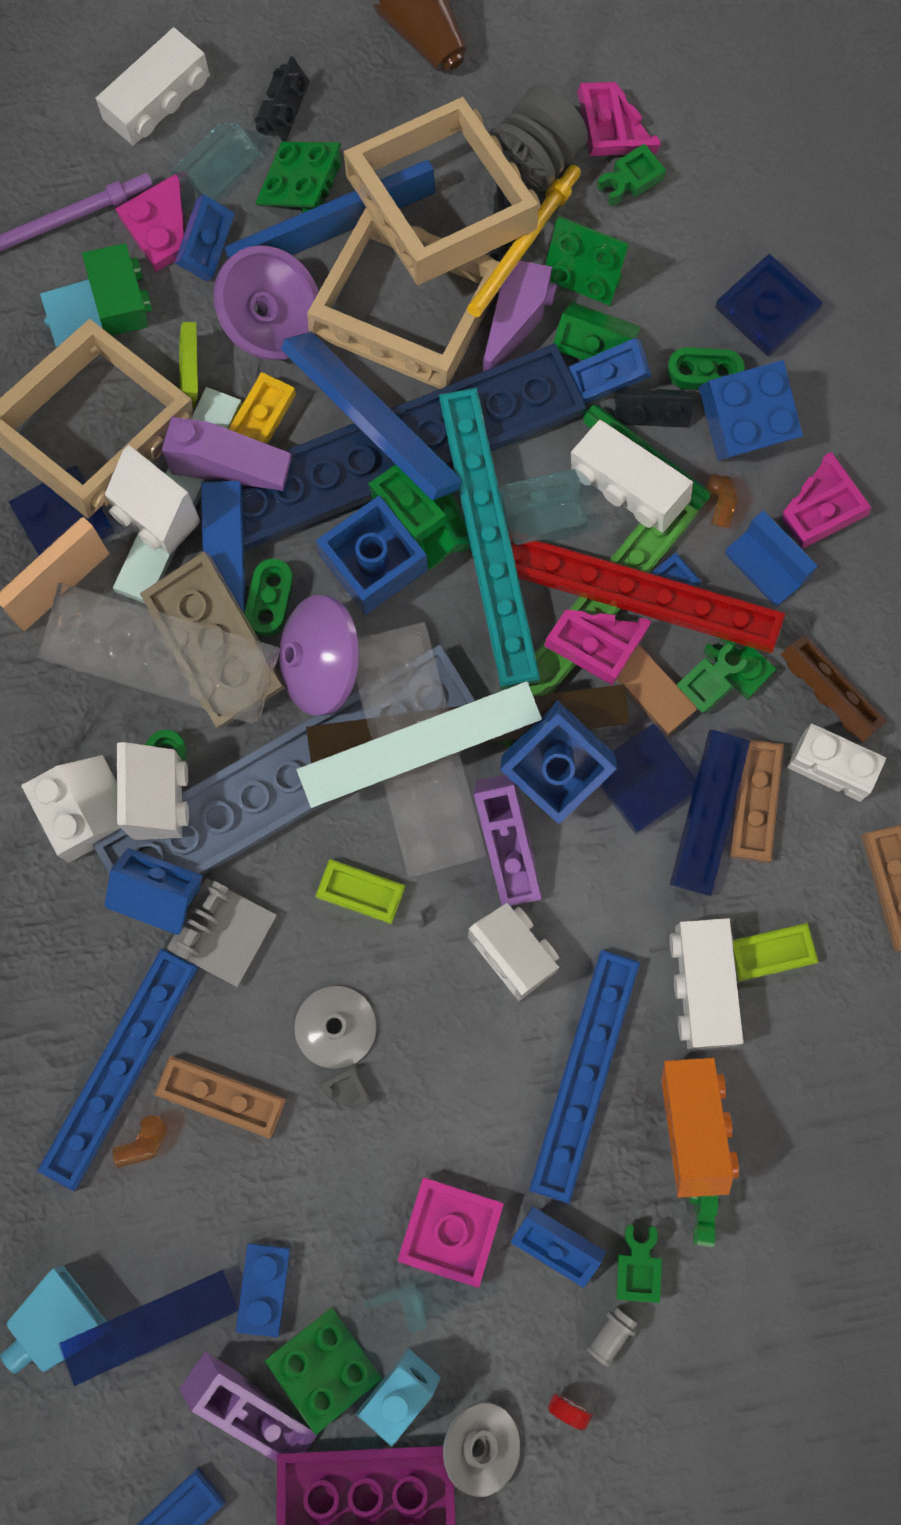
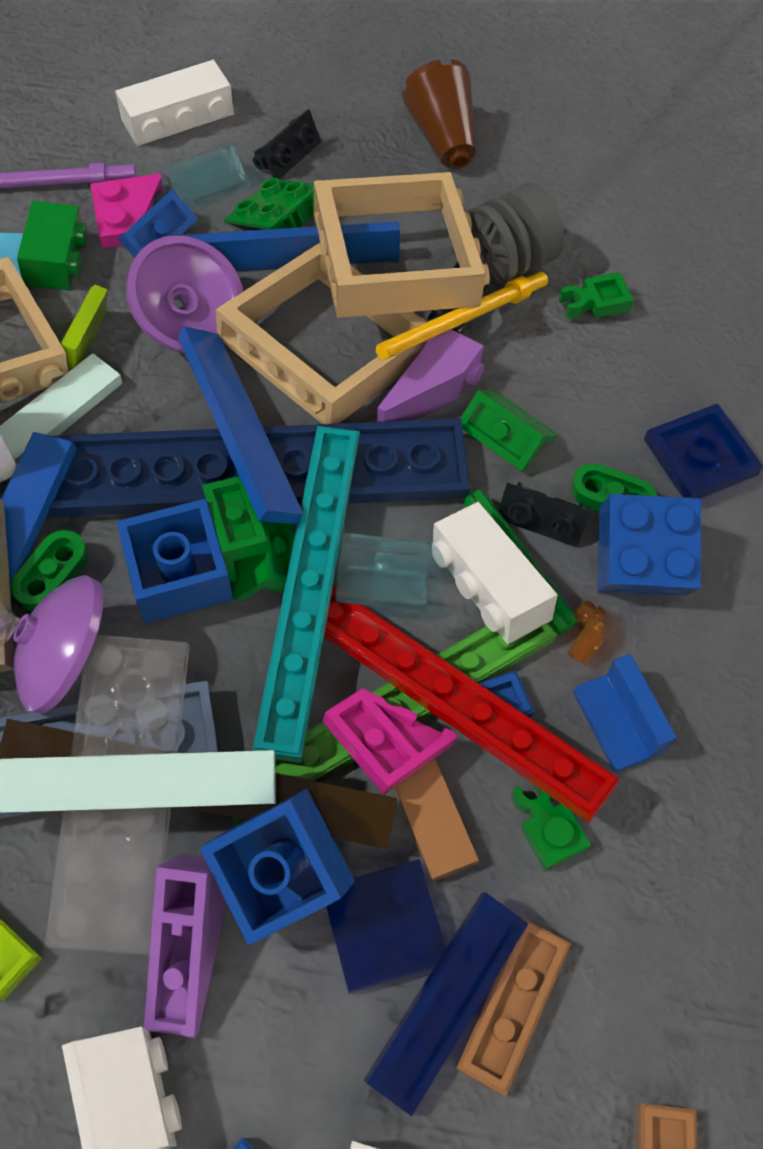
camera: 15 degrees right, 15 degrees down
(222, 455) = (65, 410): medium lavender slope -> none
(263, 408) = (132, 393): yellow plate -> none
(586, 260) = (521, 351): green hinge -> none
(610, 370) = (509, 460): blue plate -> none
(612, 121) = (593, 247): dark pink wing -> none
(708, 682) = (501, 832): green plate -> none
(825, 504) = (706, 674): dark pink wing -> none
(833, 688) = (654, 896): reddish brown plate -> none
(836, 762) = (632, 993): white brick -> none

